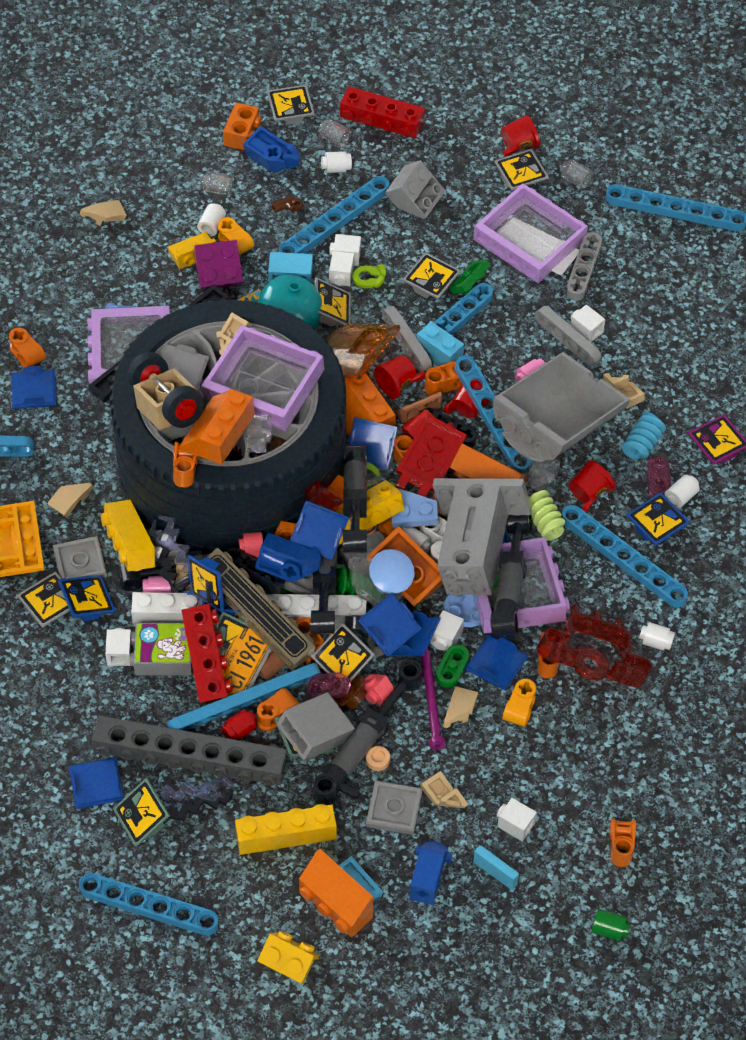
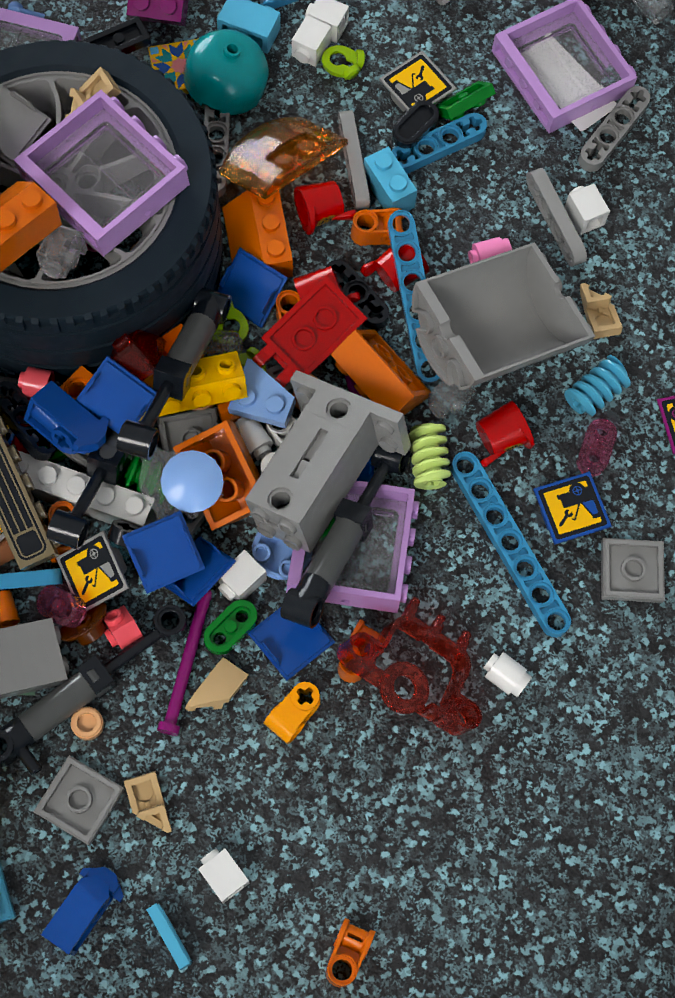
camera: 15 degrees right, 15 degrees up
(335, 303) = (283, 84): piece -> none
(410, 411) = (321, 257): nougat slope -> none
(442, 302) = (415, 124): none -> black tile
(682, 491) = (619, 478): white brick -> none
(715, 547) = (632, 570): none -> light grey tile

